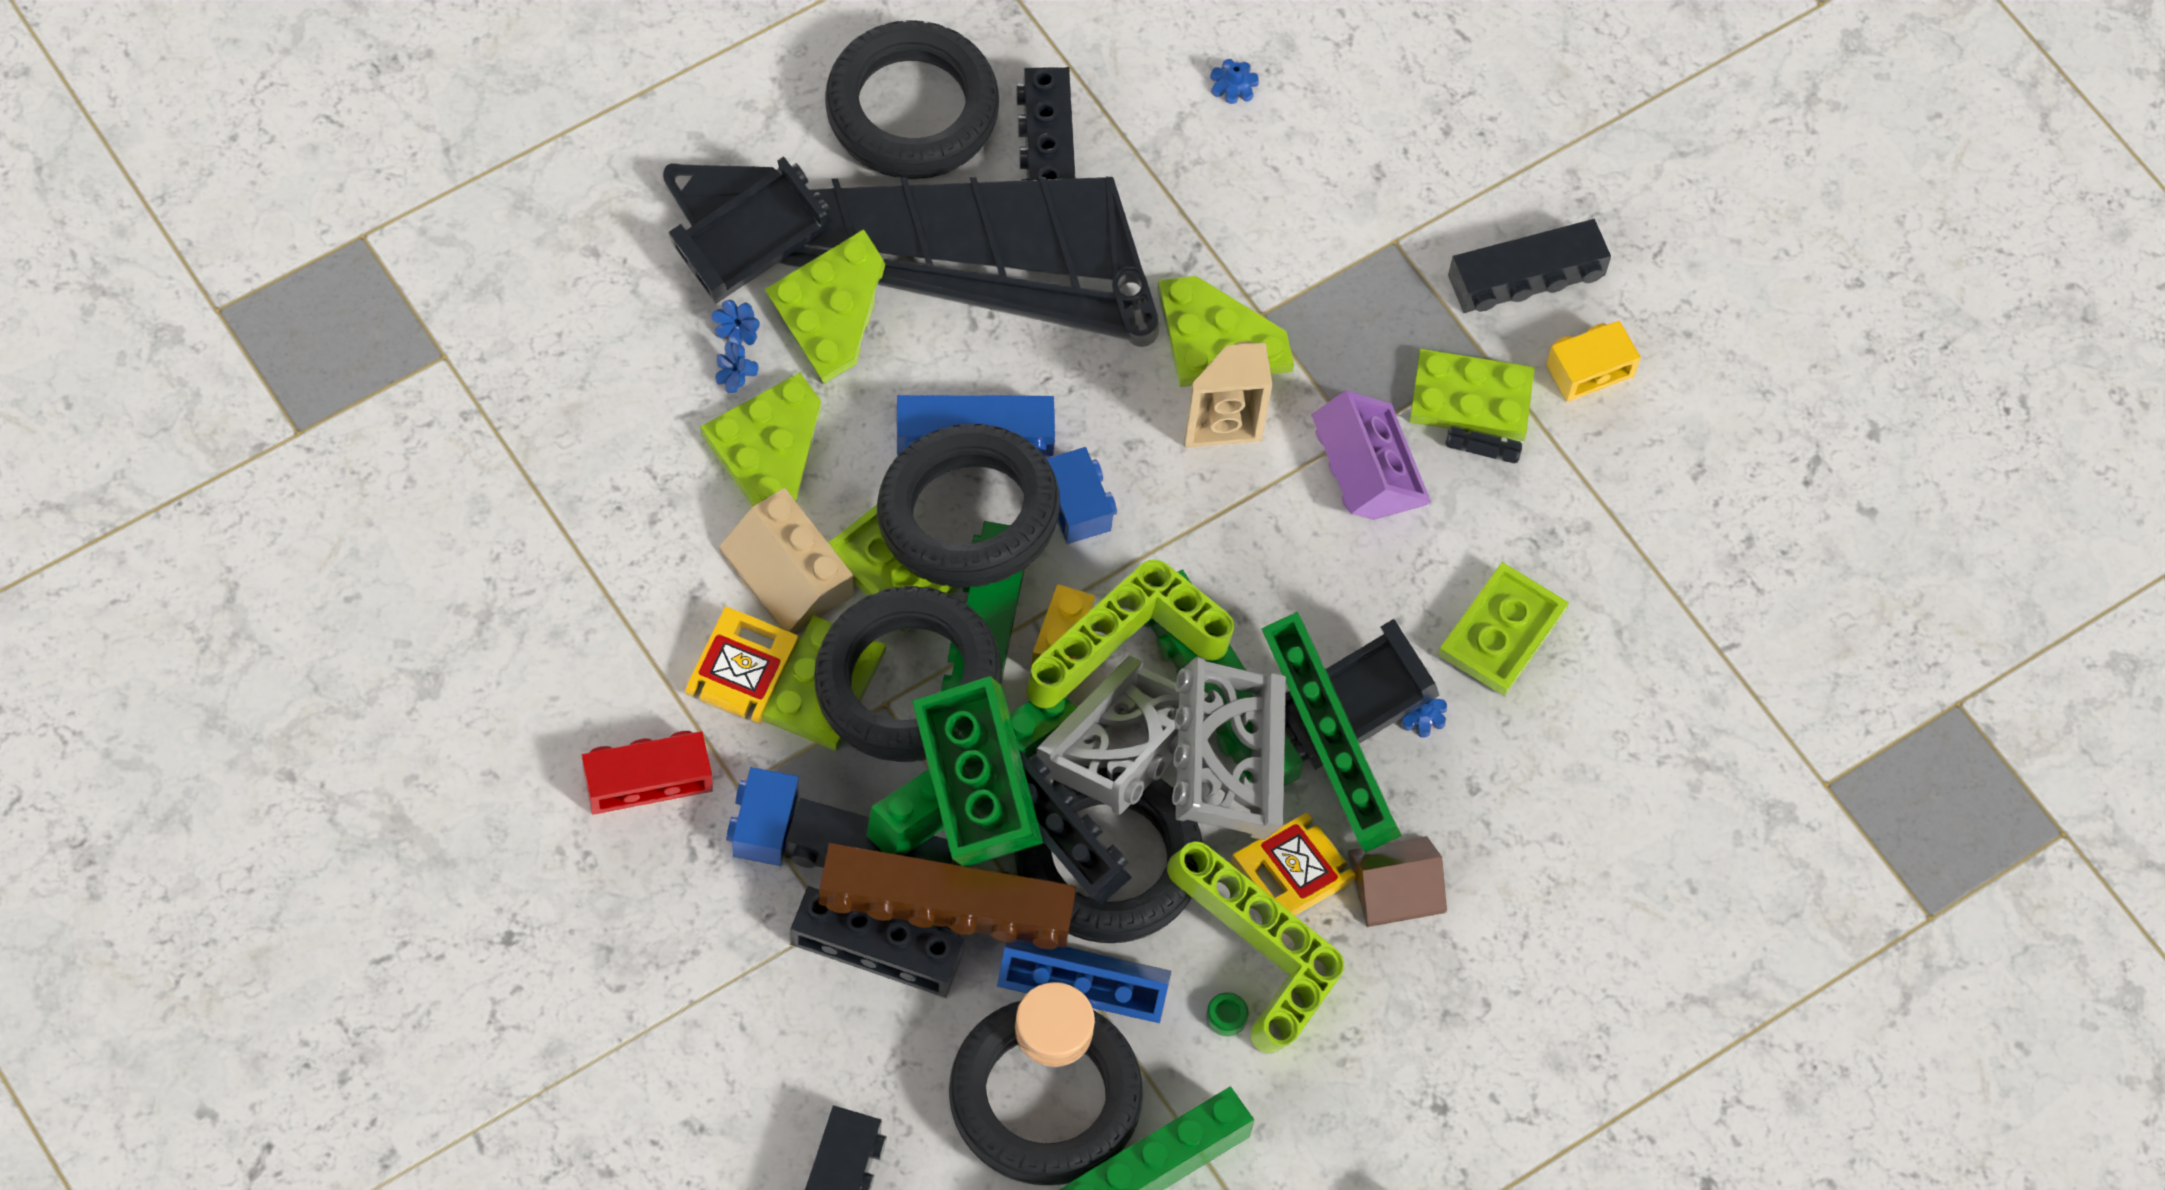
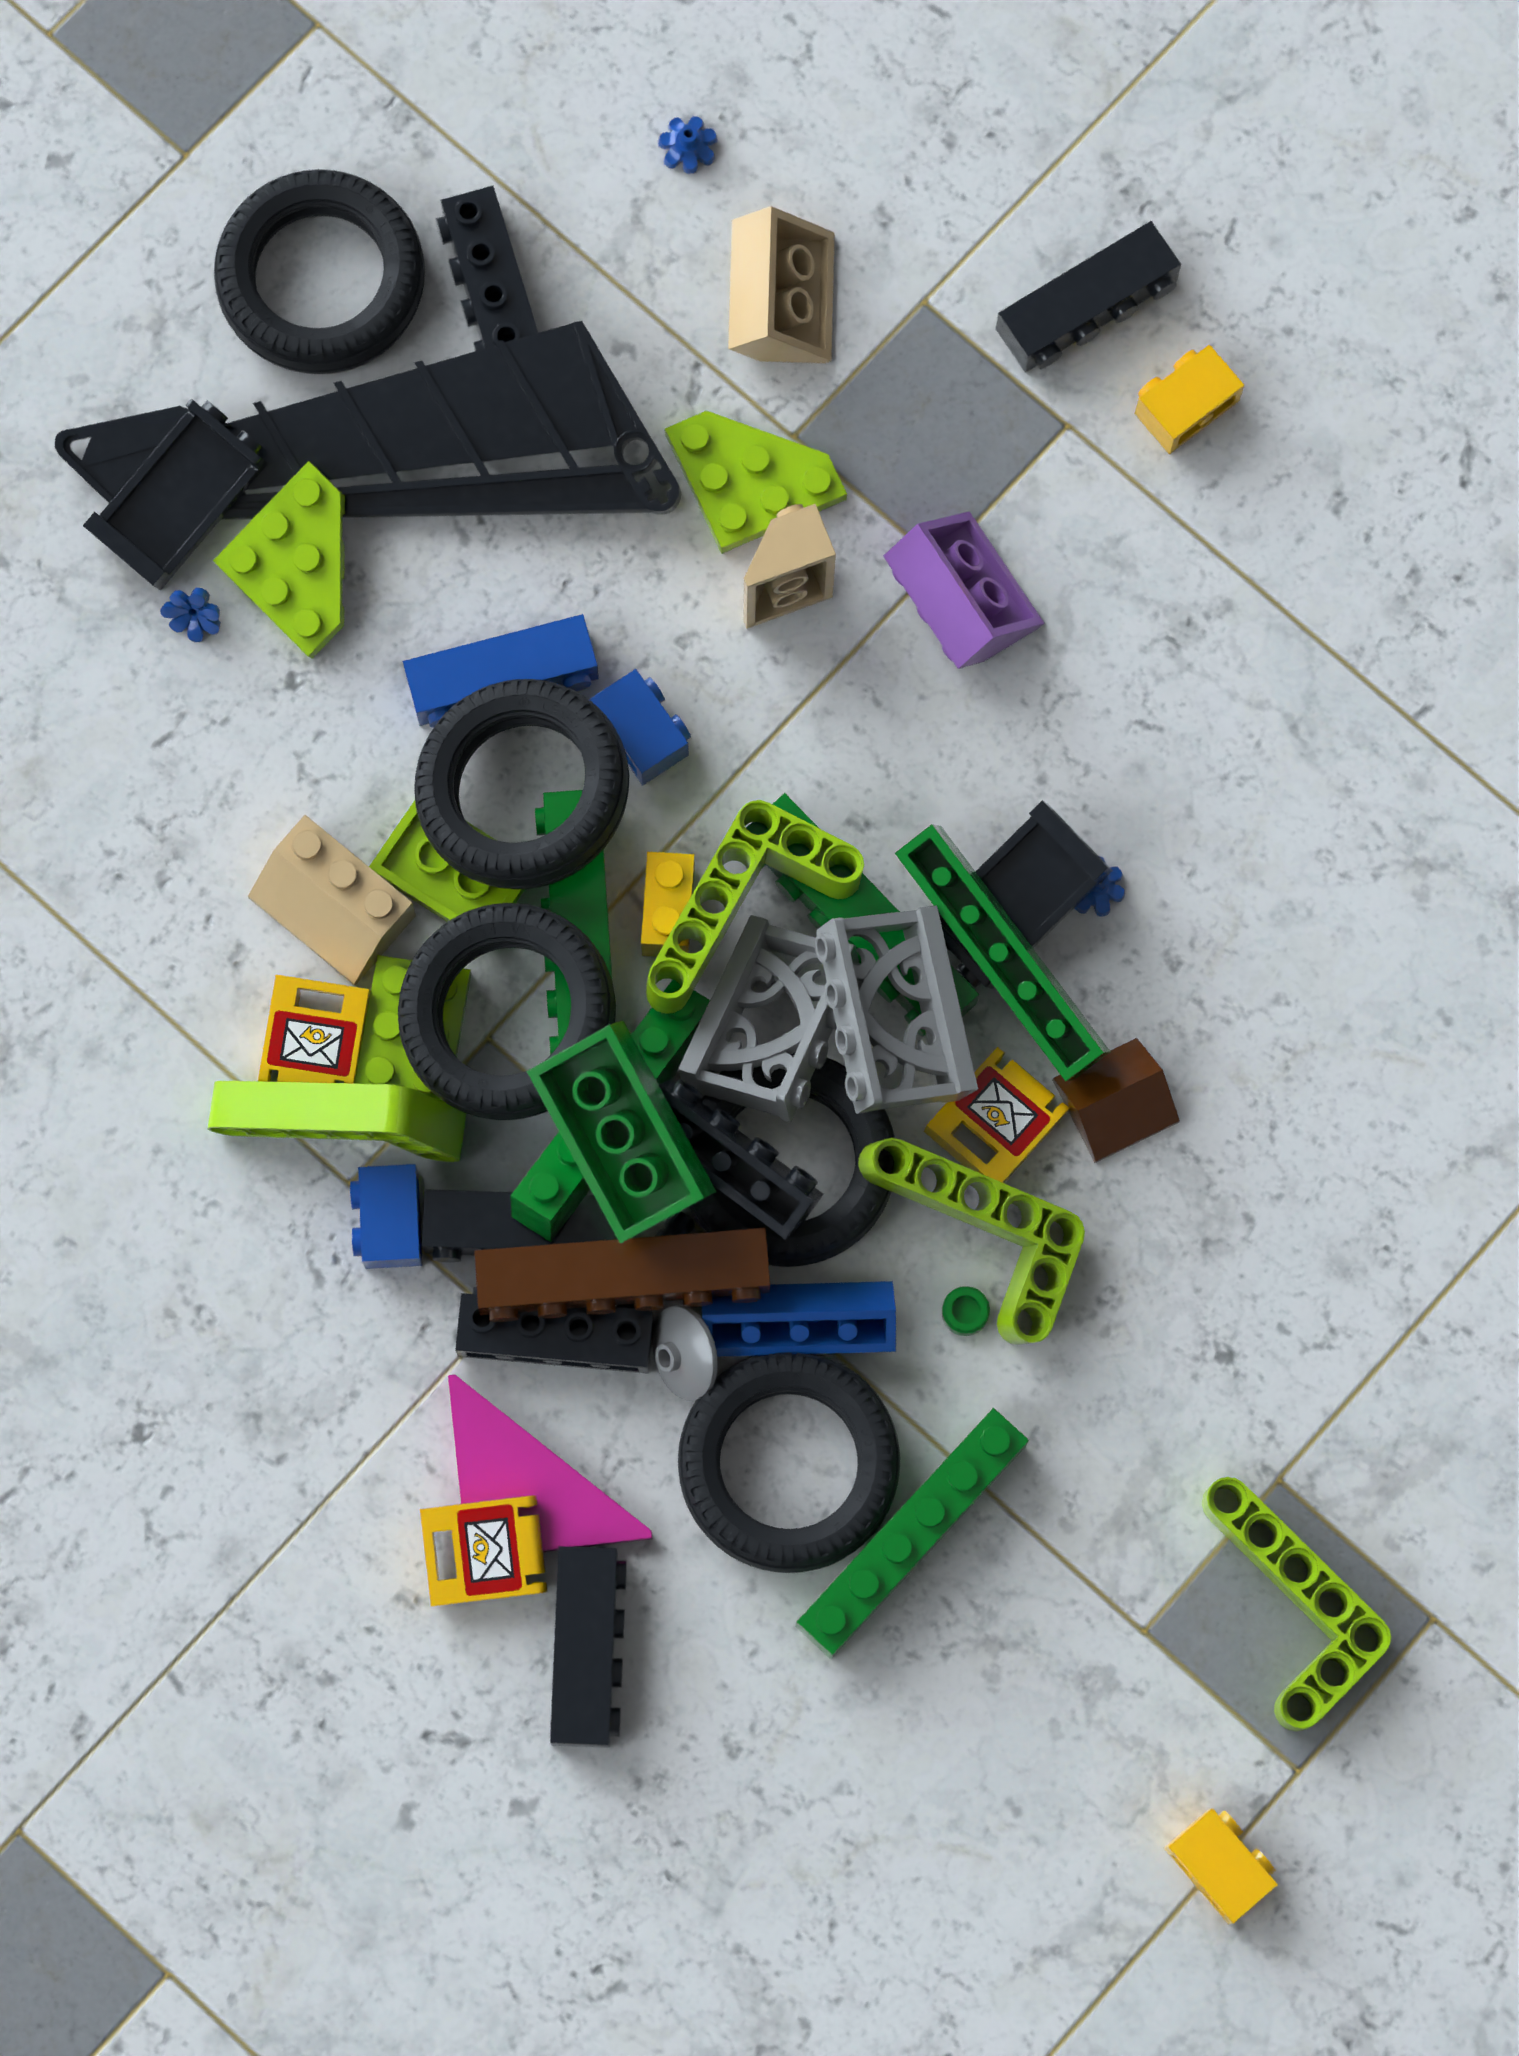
camera: 10 degrees left, 15 degrees up
(647, 772) = (241, 1197): red brick -> none
(734, 367) = (205, 669): blue plant -> none
(750, 716) = (339, 1112): none -> beam
(767, 439) = (268, 750): lime plate -> none
(774, 1097) = (490, 1550): none -> container
(813, 1062) = (507, 1462): none -> dark pink tile
(981, 980) = (684, 1352): none -> light grey dish
(1054, 1024) = (781, 1393): light nougat head -> none
(1281, 200) = (781, 288): none -> tan slope
(1472, 394) = (1059, 476): lime plate -> none
(1483, 444) = (1087, 536): black axle -> none
(1503, 629) = (1164, 762): lime plate -> none

